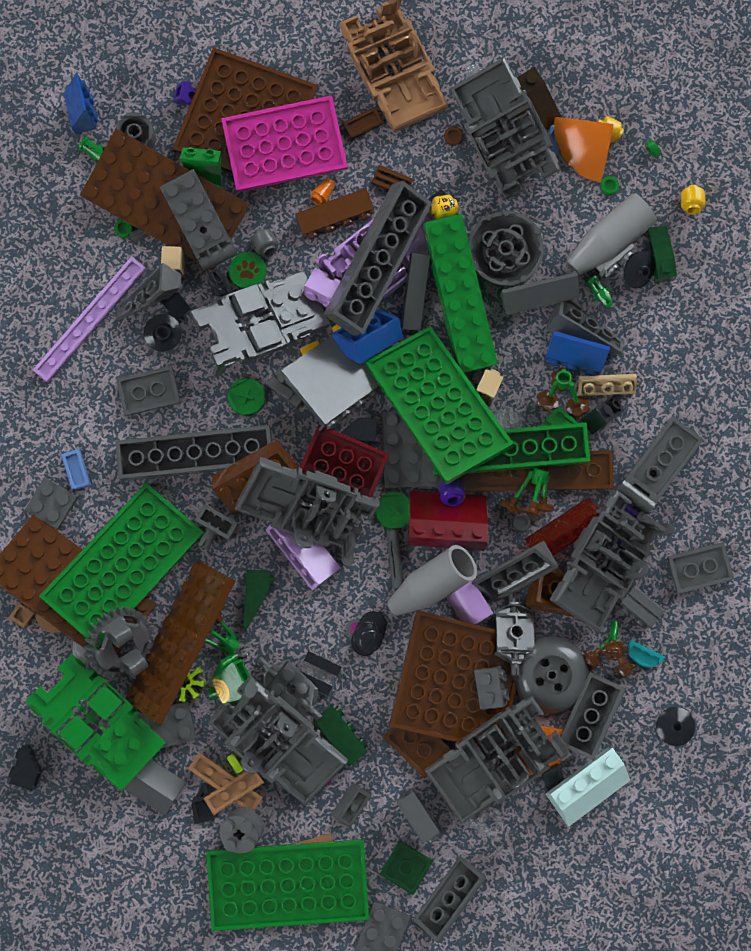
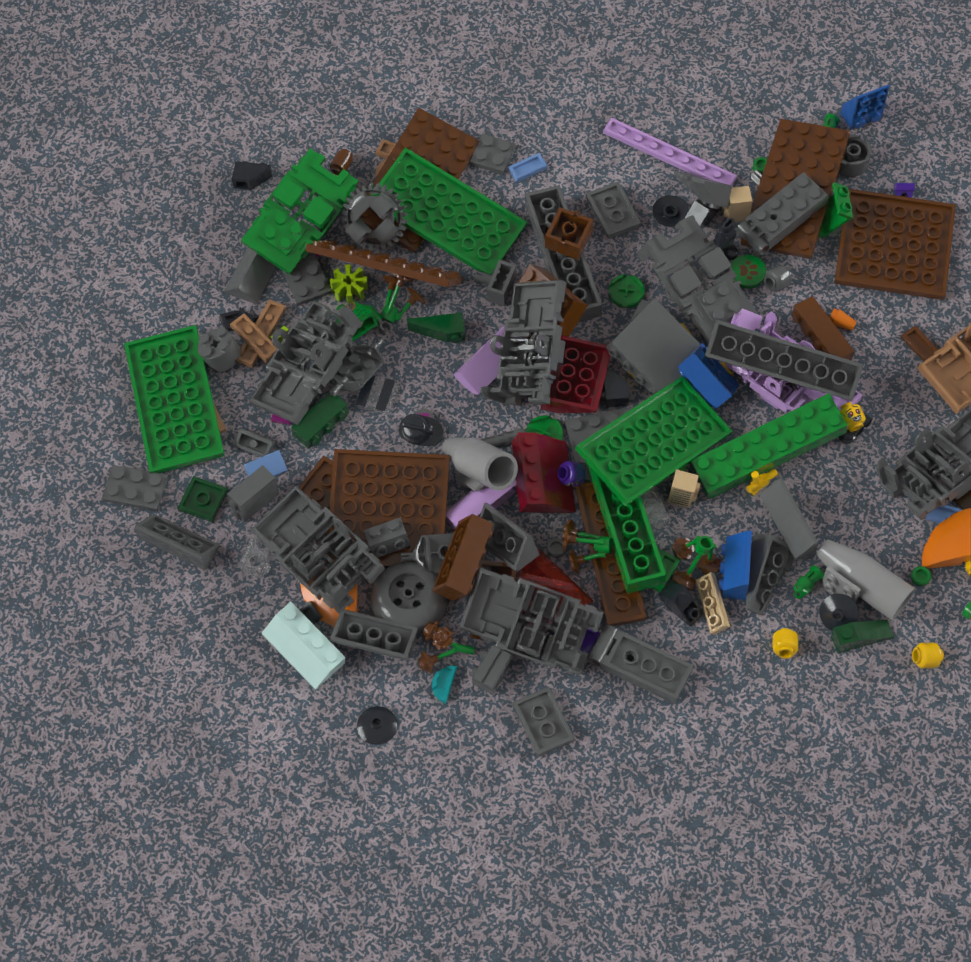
camera: 80 degrees right, 20 degrees down
(30, 667) = (341, 161): none -> reddish brown brick
(184, 441) = (569, 233): none -> reddish brown brick
(284, 143) = (878, 275): dark pink plate -> none
(384, 798) = (272, 462): none -> medium blue slope
(392, 173) = (871, 365): reddish brown tile -> none
(415, 291) = (761, 409): dark grey tile -> none
(453, 136) = (931, 423): reddish brown tile -> none
(489, 312) = (760, 481): none -> yellow piece
(517, 230) = (833, 465): dark grey brick -> none
(535, 616) = (463, 557): none -> reddish brown brick
(576, 536) = (564, 587): none -> clear red tile
(659, 326) = (785, 643): none -> yellow head

